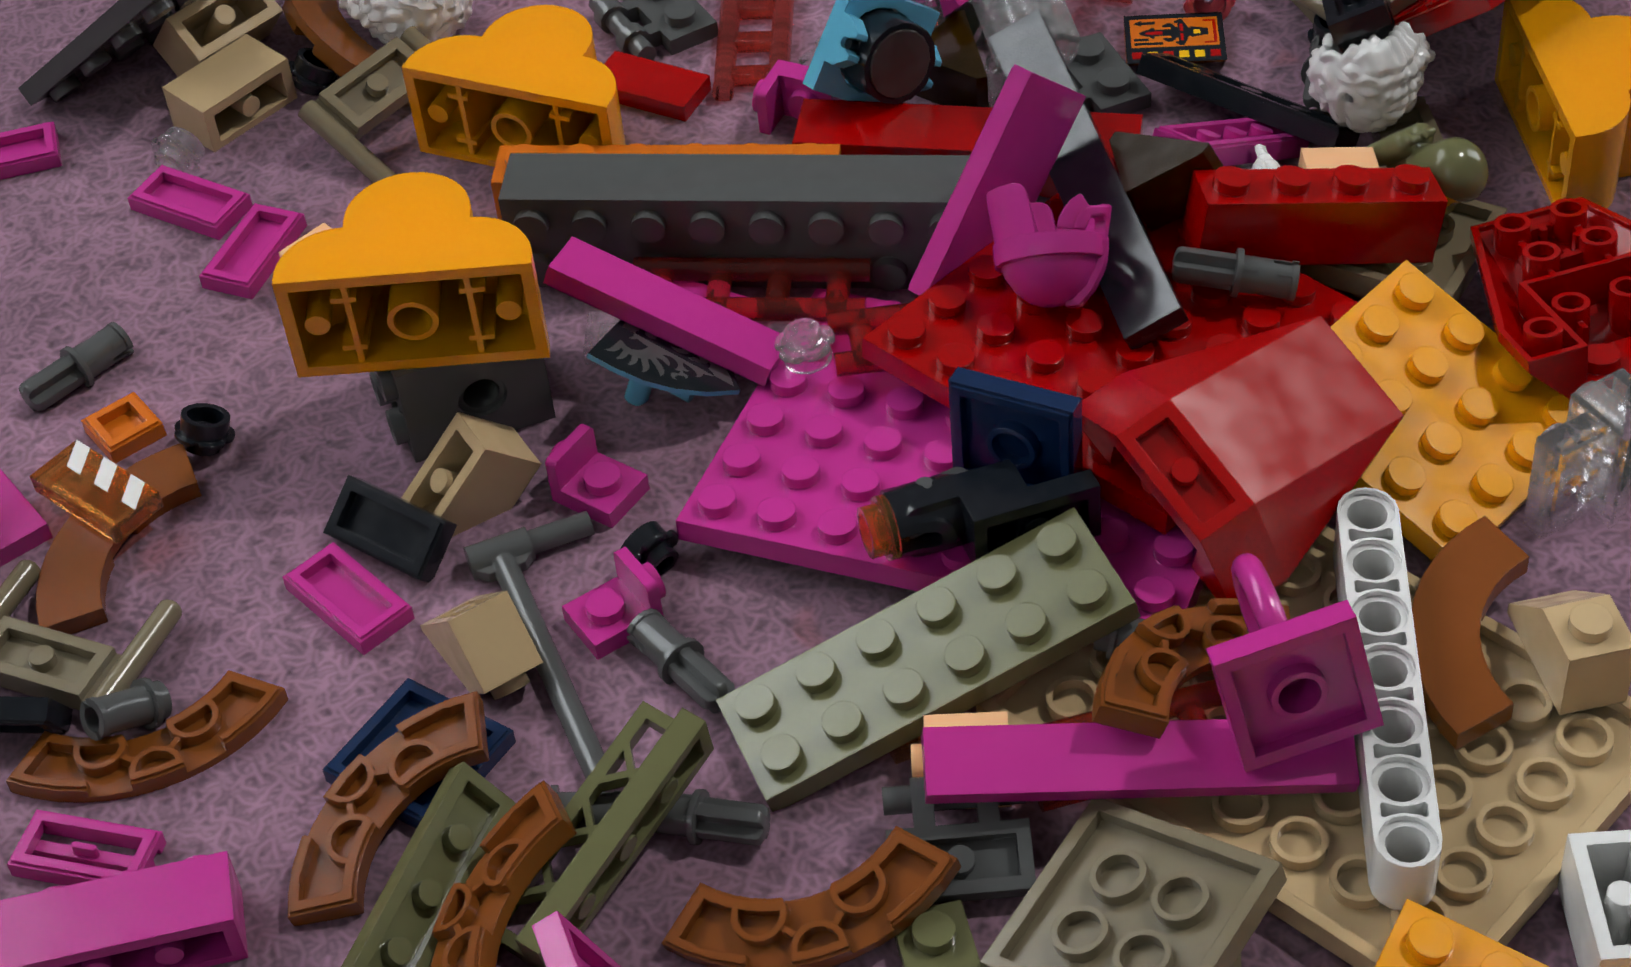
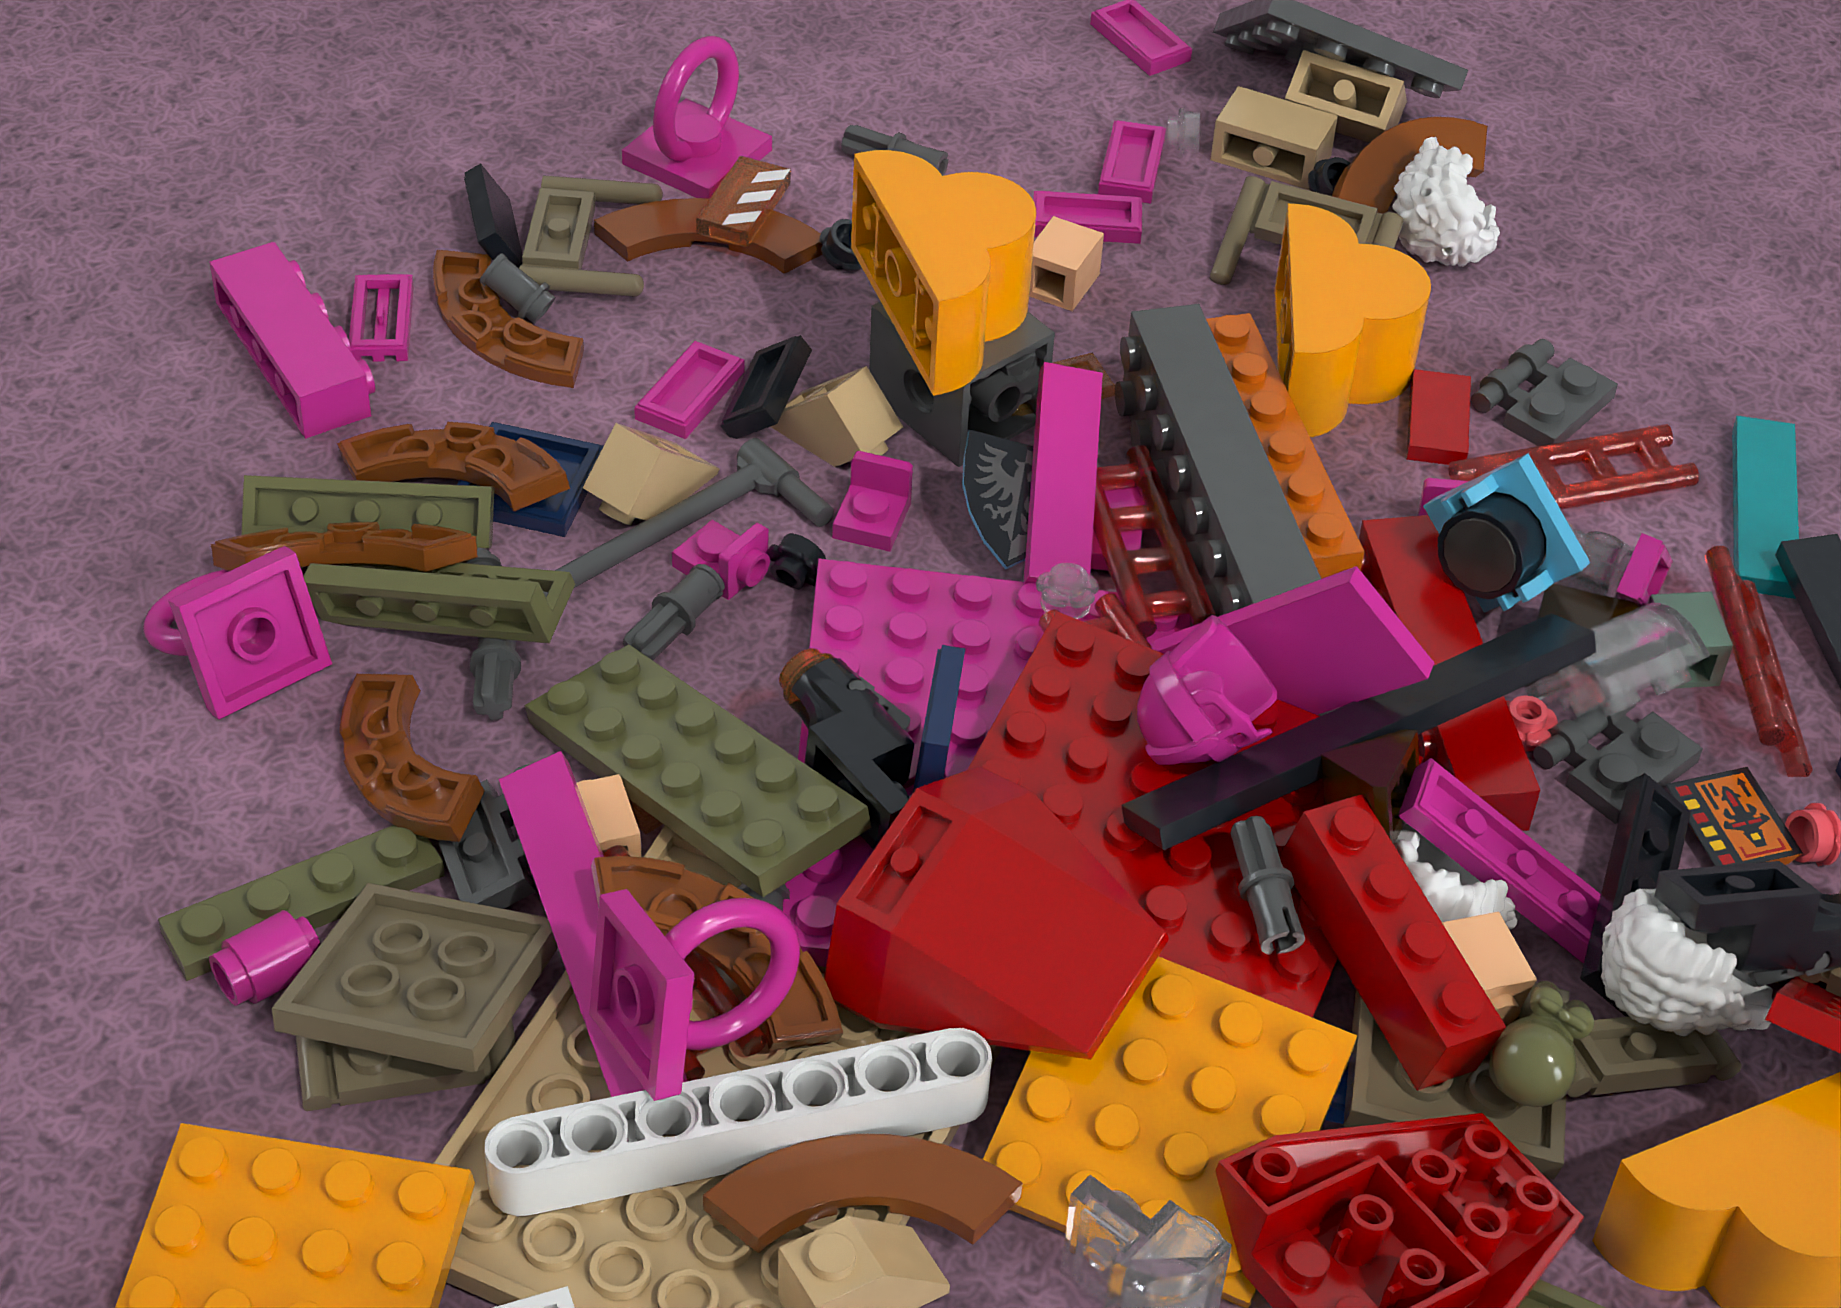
camera: 65 degrees right, 0 degrees up
(124, 427) = (830, 201): orange tile -> none

